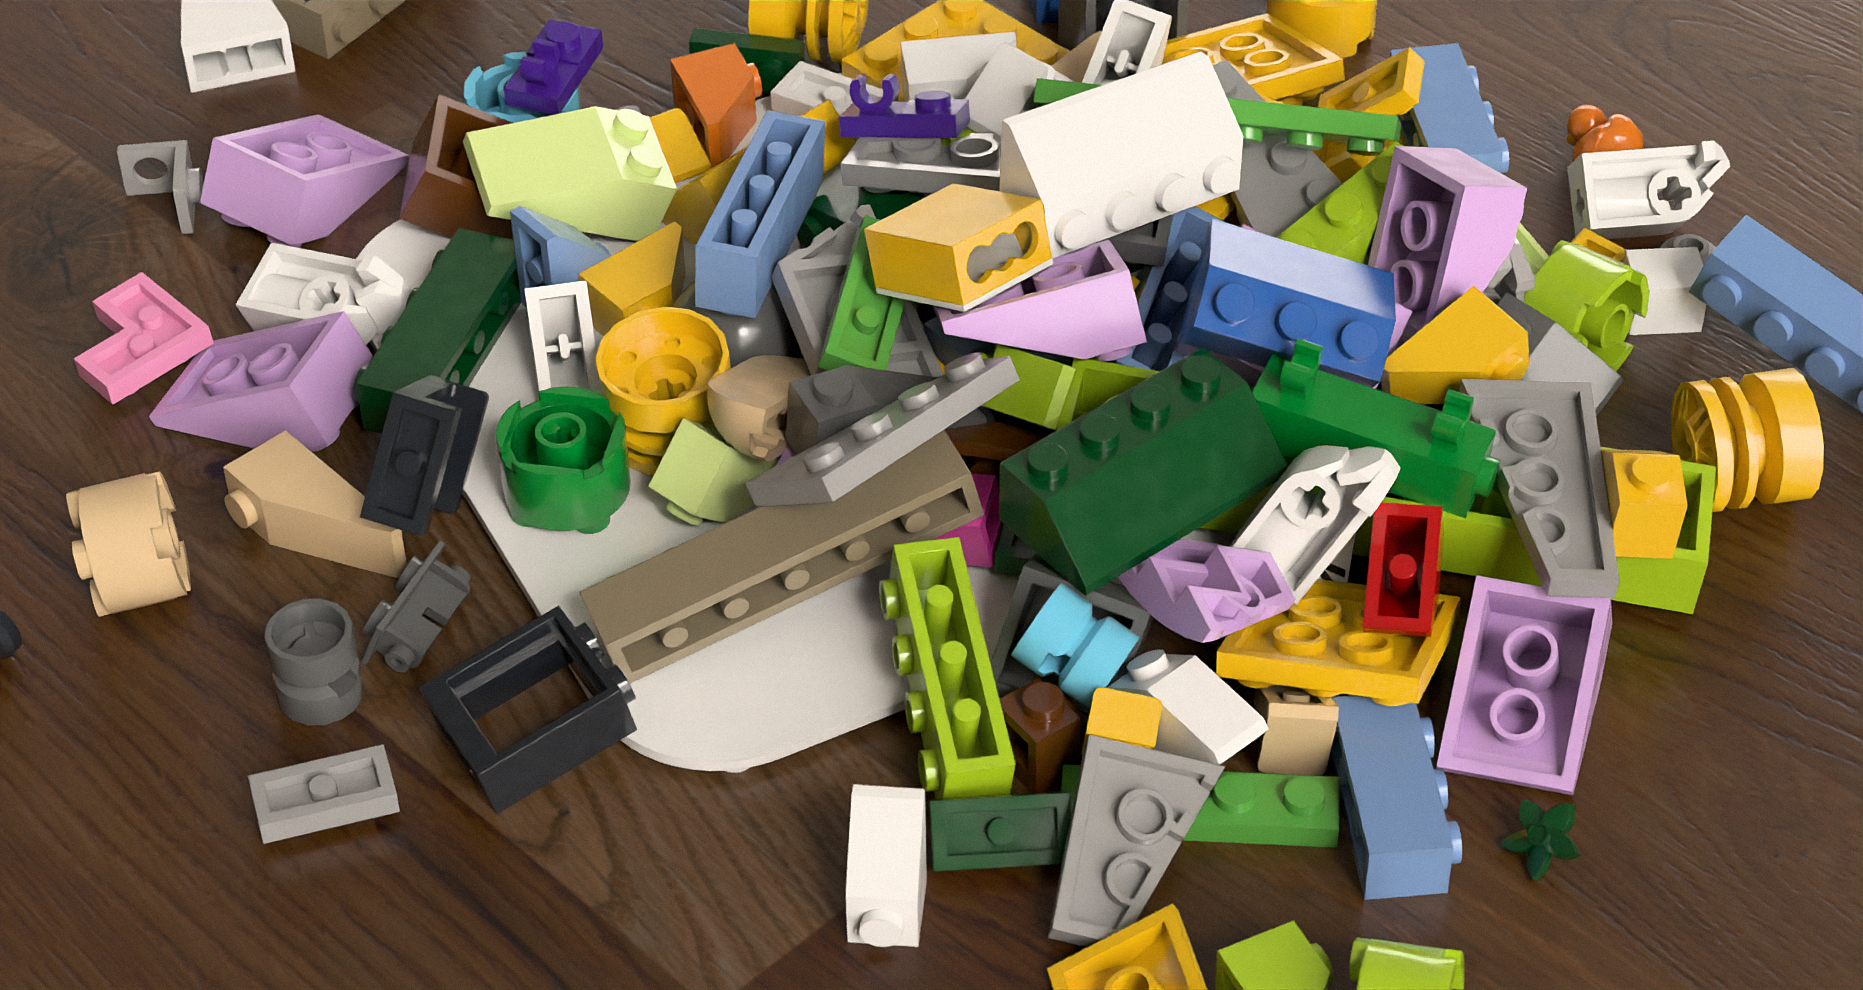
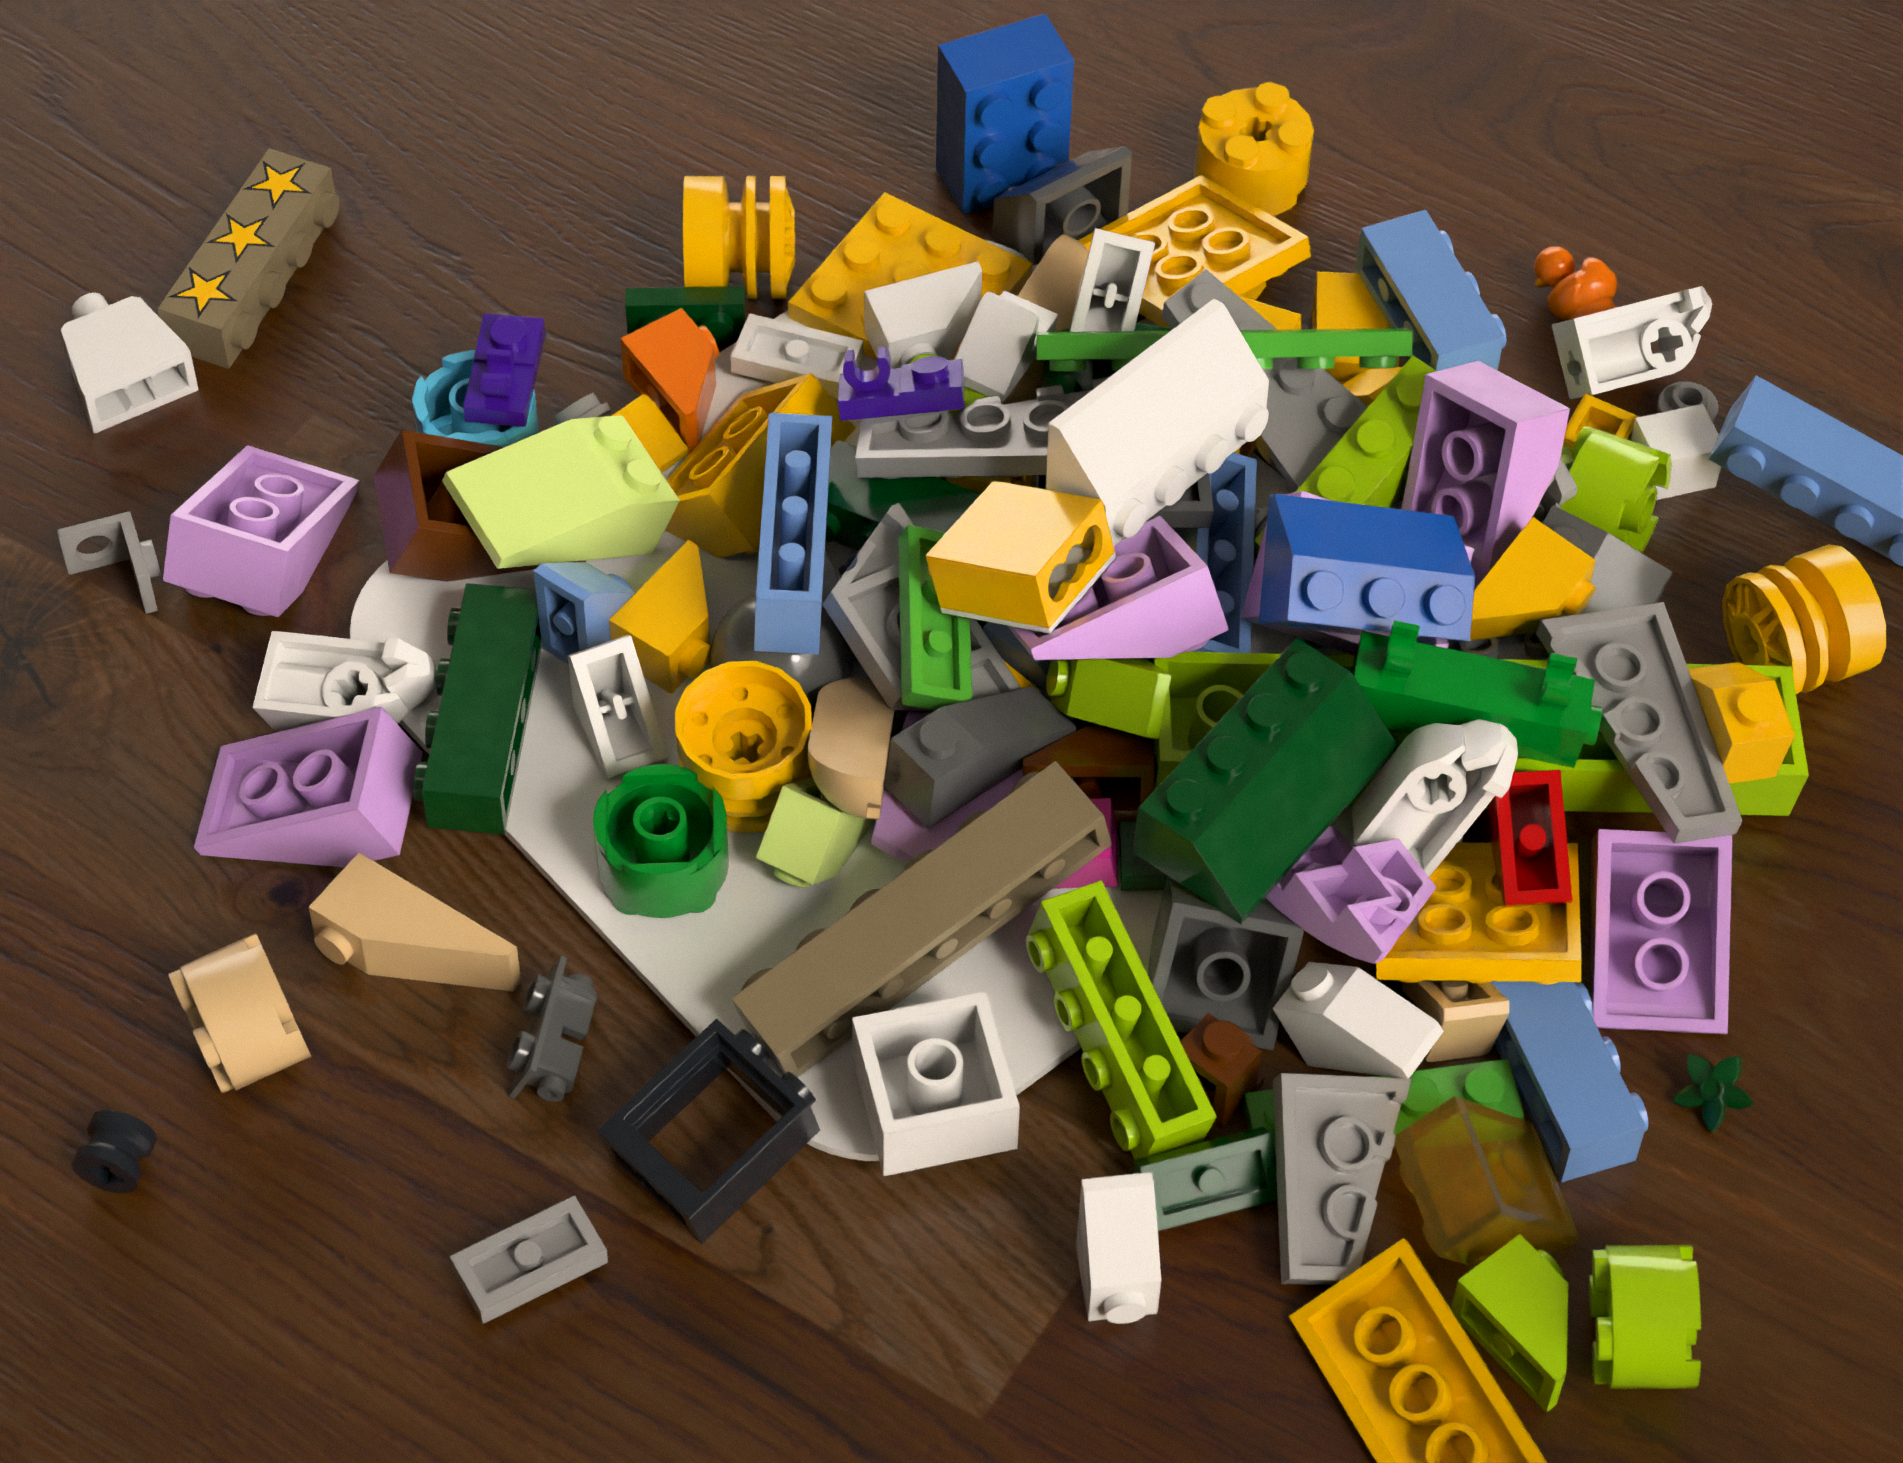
camera: 15 degrees left, 10 degrees up
(148, 341) = (167, 754): bright pink plate -> none
(314, 661) = (475, 1114): dark grey wheel -> none
(424, 453) = (526, 868): black panel -> none
(749, 695) = (935, 1083): none -> white brick
(886, 435) = (1000, 795): light grey wing -> none
(1074, 645) = (1248, 981): medium azure wheel -> none
(1124, 717) = (1304, 1050): yellow slope -> none
(1276, 865) = (1481, 1182): none -> clear yellow slope
(1382, 89) = (1354, 293): yellow plate -> none

